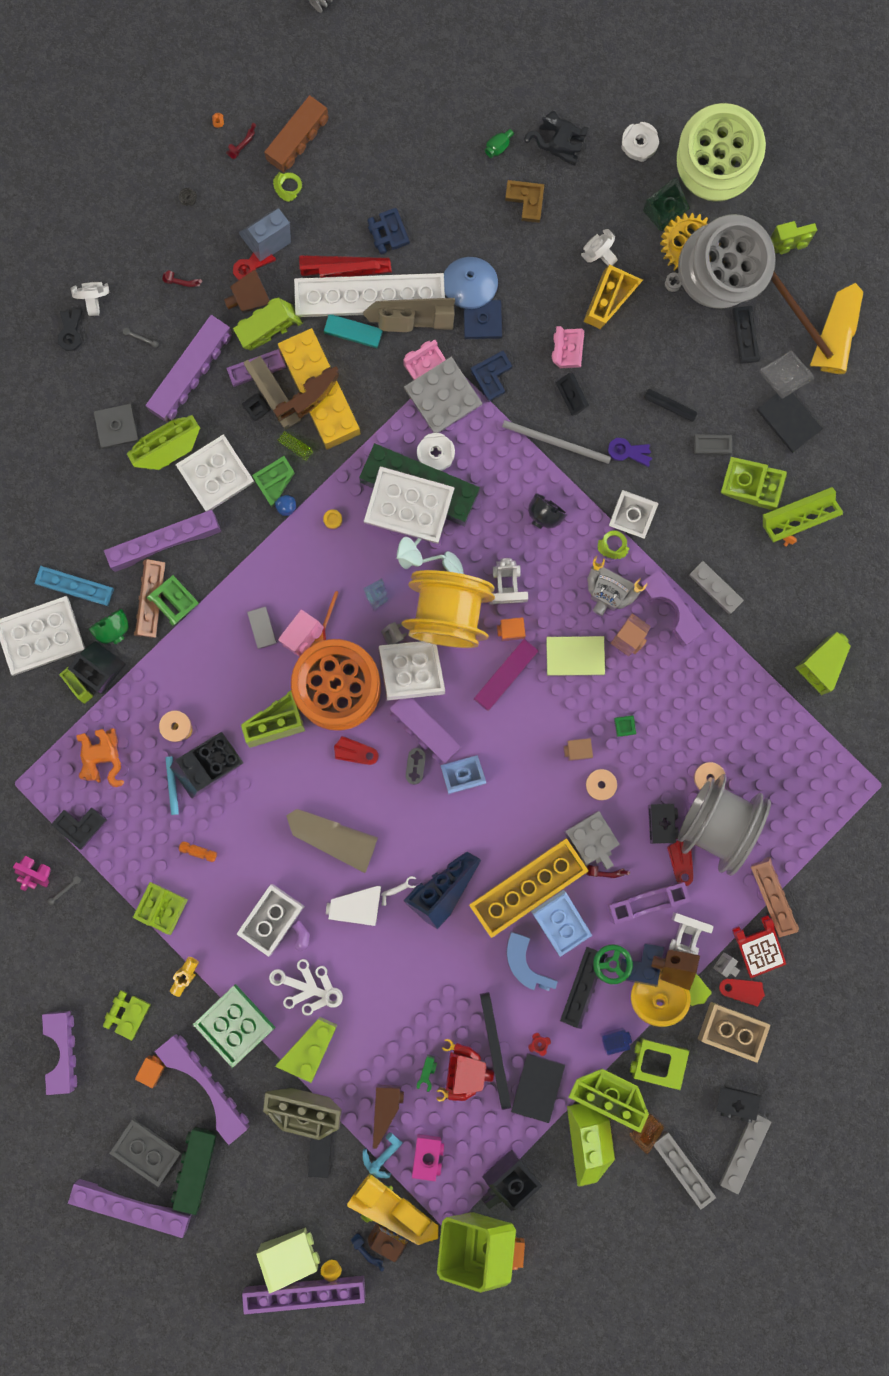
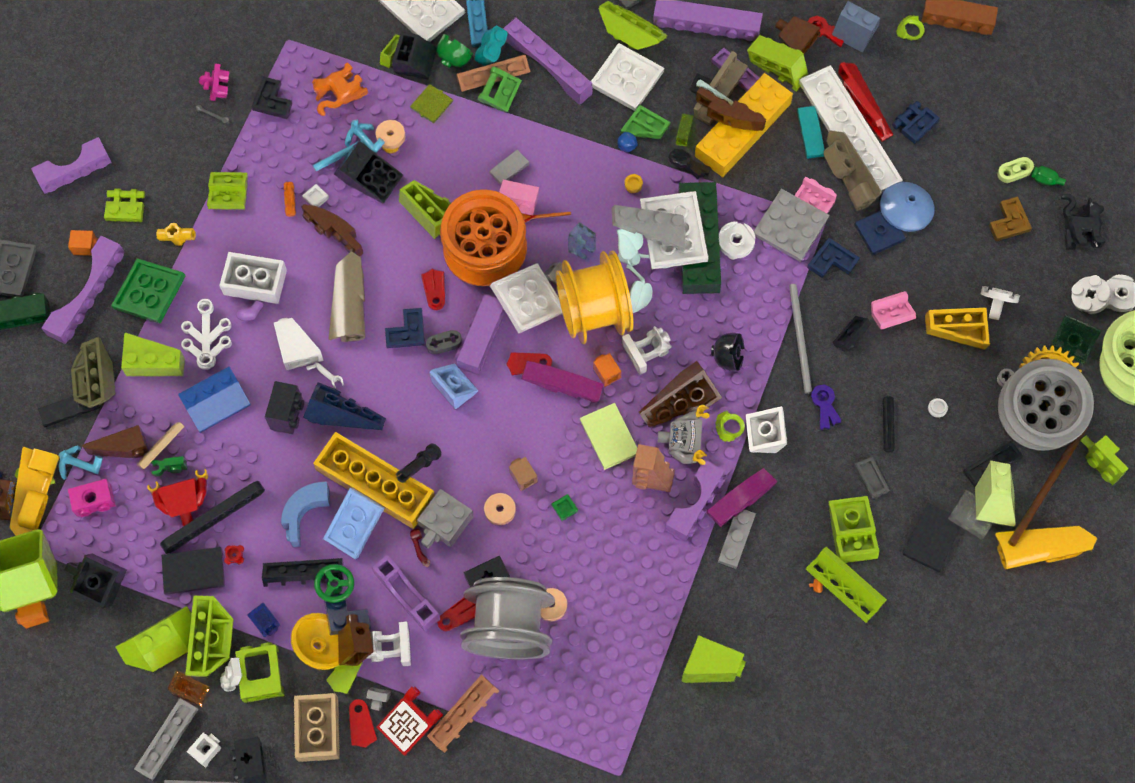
camera: 70 degrees right, 15 degrees down
(121, 588) = (491, 46): none -> teal brick
(154, 756) = (357, 130): none -> medium azure piece
(156, 672) = (431, 103): none -> clear neon green piece
(206, 825) = (315, 196): none -> white tile
(243, 824) = (332, 225): none -> reddish brown slope
(281, 398) = (700, 83): none -> light aqua bar
(326, 463) = (682, 159): none -> black piece
(379, 1005) = (214, 399): none -> slope
(394, 793) = (411, 334): none -> dark blue plate
(403, 523) = (652, 224): none -> light grey wing
(403, 1073) = (160, 445): none -> tan tile
(420, 942) = (284, 407): none -> black piece
(466, 705) = (518, 361): none -> red piece
(479, 169) = (1014, 170): none -> yellowish green plate
(528, 834) = (423, 459): none -> black pin
(565, 568) = (681, 396): none -> reddish brown wedge
(623, 159) = (1101, 297): none -> white plate
(654, 1090) = (231, 676): none -> white plate
(674, 355) = (937, 407): none -> white plate
(684, 565) = (741, 497): none -> magenta slope
(712, 1145) = (197, 749): none -> white brick
(784, 347) = (996, 495): none -> yellowish green slope

